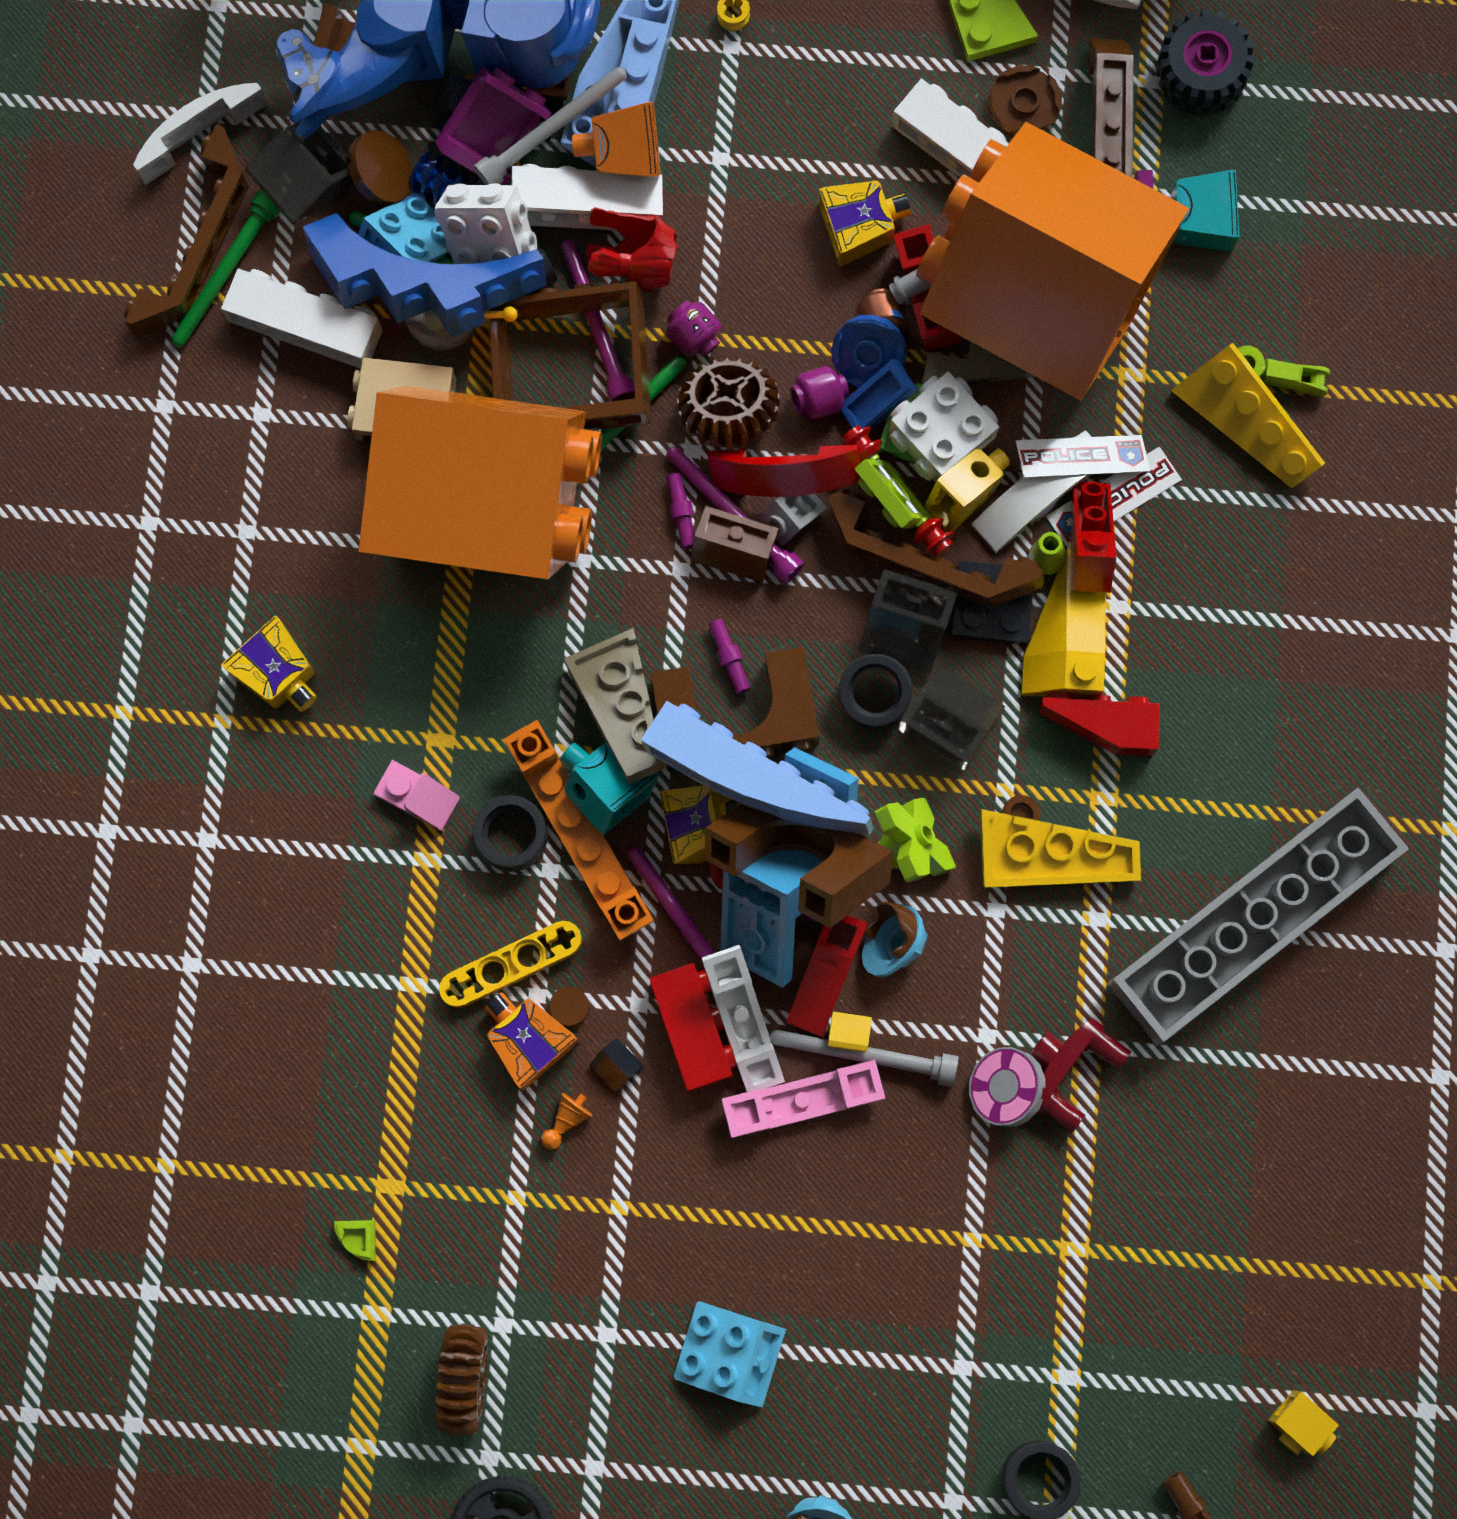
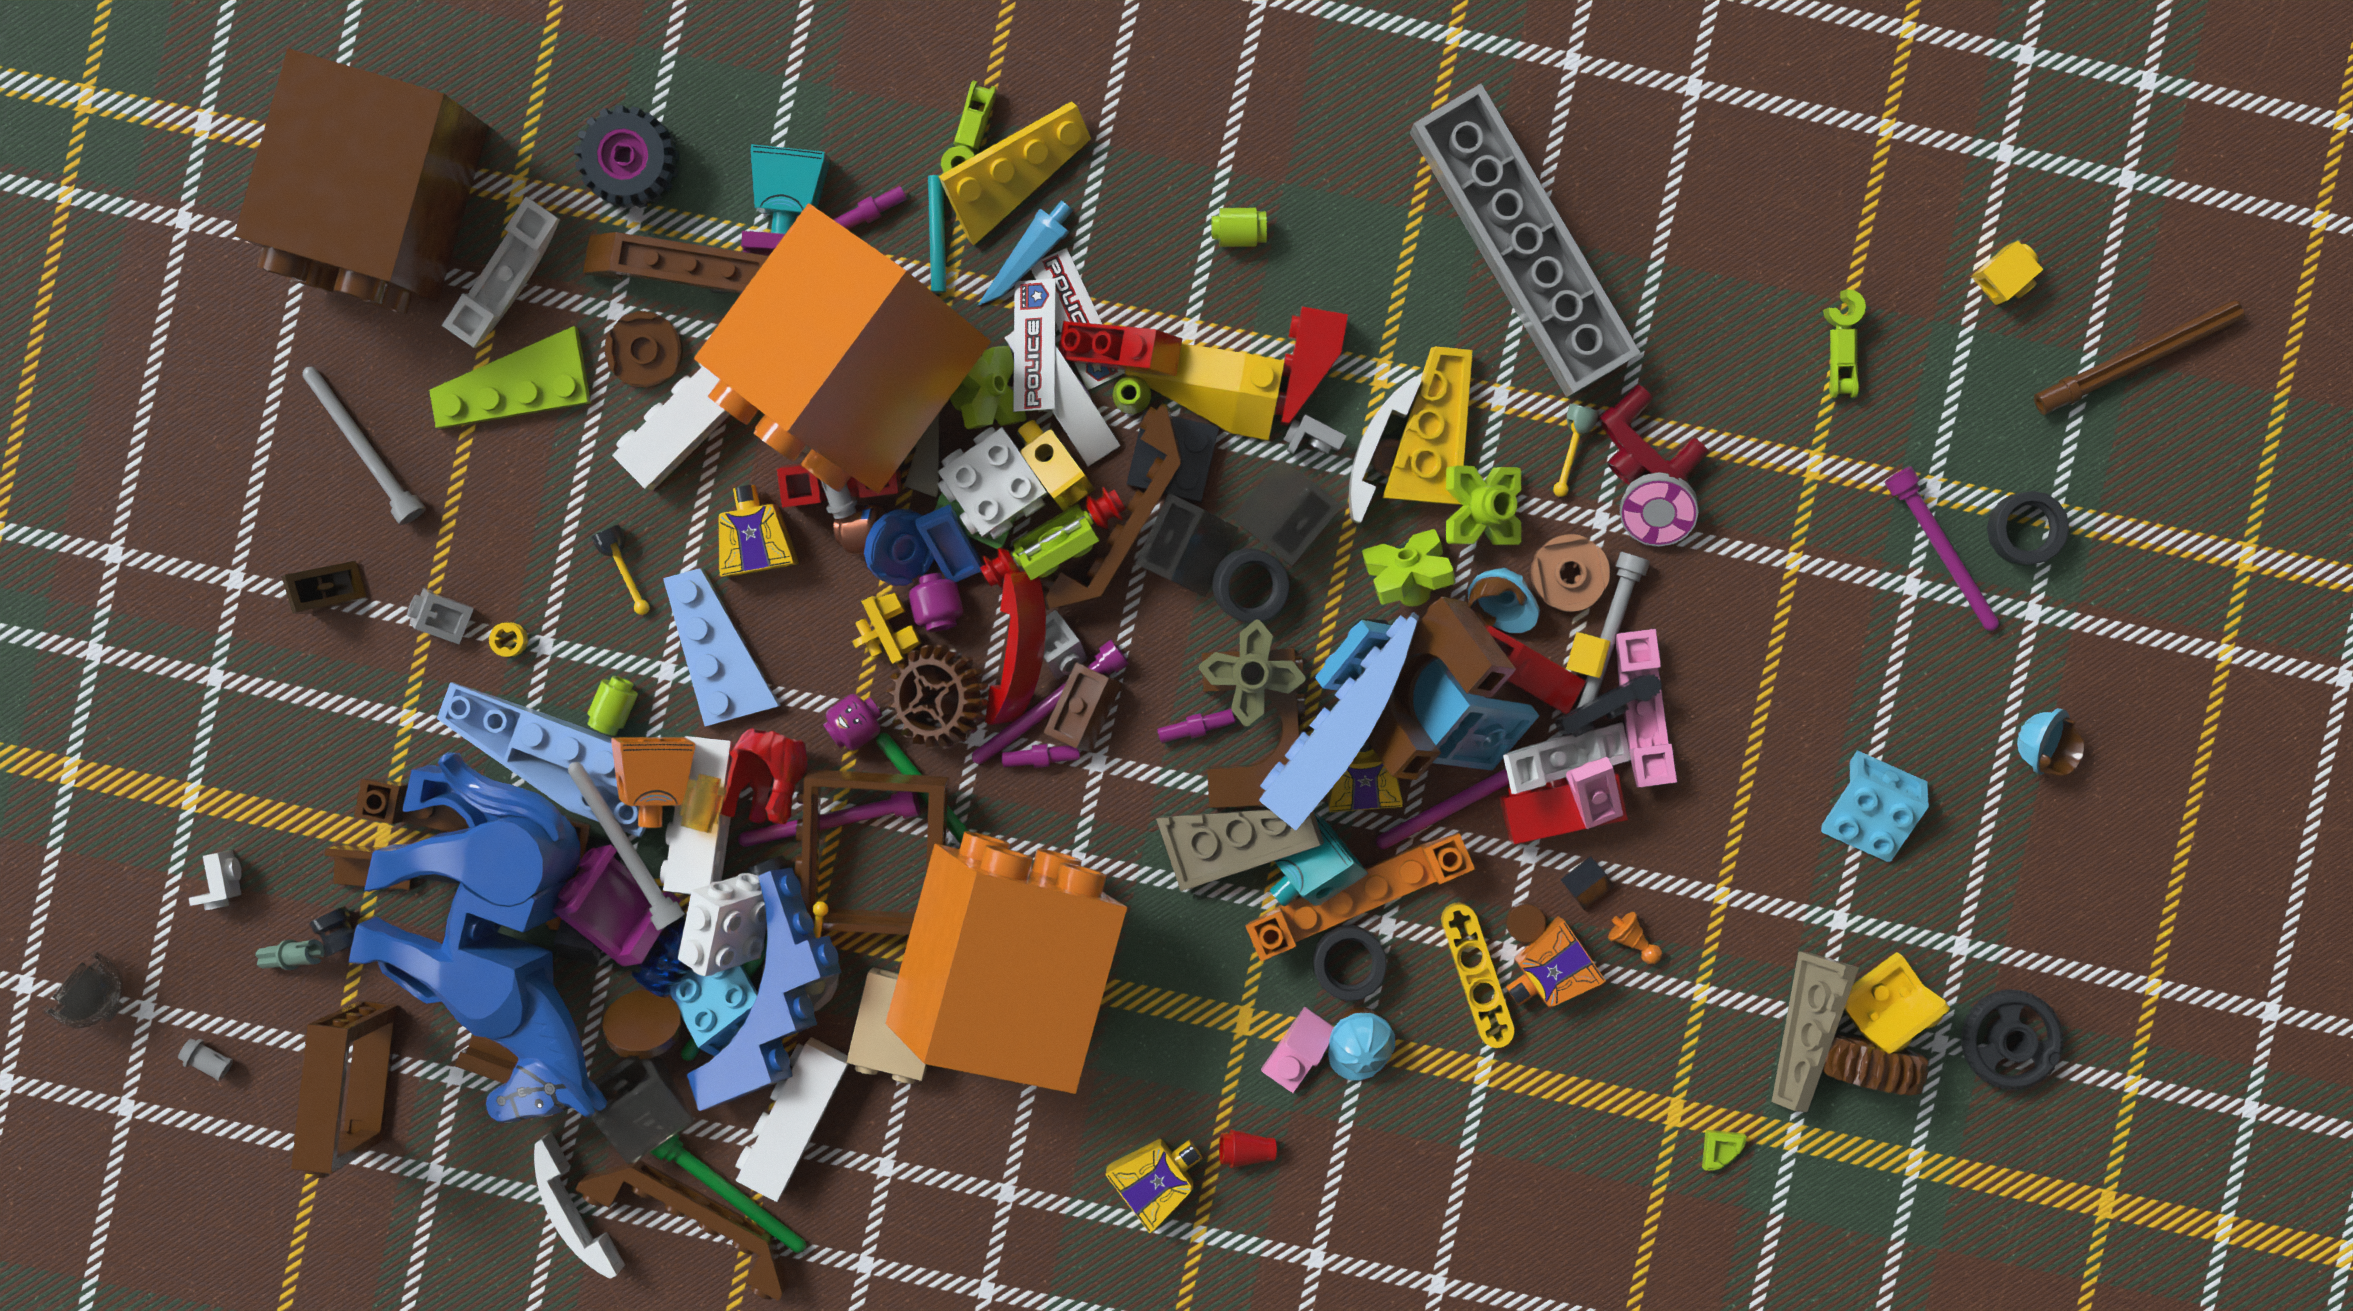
camera: 90 degrees left, 10 degrees up
(312, 753) = (1244, 1149): none -> red cone
(429, 854) = (1360, 1044): none -> medium azure piece
(506, 1311) = (1812, 1019): none -> dark tan wing
(527, 1391) = (1893, 1005): none -> yellow bracket
(600, 190) = (702, 803): none -> clear yellow brick
(682, 109) = (612, 705): none -> lime brick
(712, 1048) = (1595, 792): none -> bright pink slope
(736, 202) = (718, 661): none -> light blue wing
(785, 343) = (879, 612): none -> yellow hips
(803, 1059) = (1611, 703): none -> black hinge
(812, 694) = (1273, 675): none -> olive plant
(837, 91) = (611, 543): none -> hinge
(940, 987) = (1588, 585): none -> nougat plate
(998, 896) = (1486, 506): none -> lime plant
(1031, 412) = (986, 393): none -> lime plant
(1032, 742) = (1320, 435): none -> light grey bracket
(1064, 1345) = (1905, 486): none -> magenta piece
(1077, 815) = (1360, 491): none -> white slope
(1085, 998) = (1580, 421): none -> hinge
(1171, 356) = (937, 234): none -> teal bar
(1182, 449) = (1035, 243): none -> dark azure bar
(1190, 290) = (870, 208): none -> magenta bar
(1202, 1261) = (1844, 343): none -> lime piece
(1228, 638) = (1239, 227): none -> lime brick

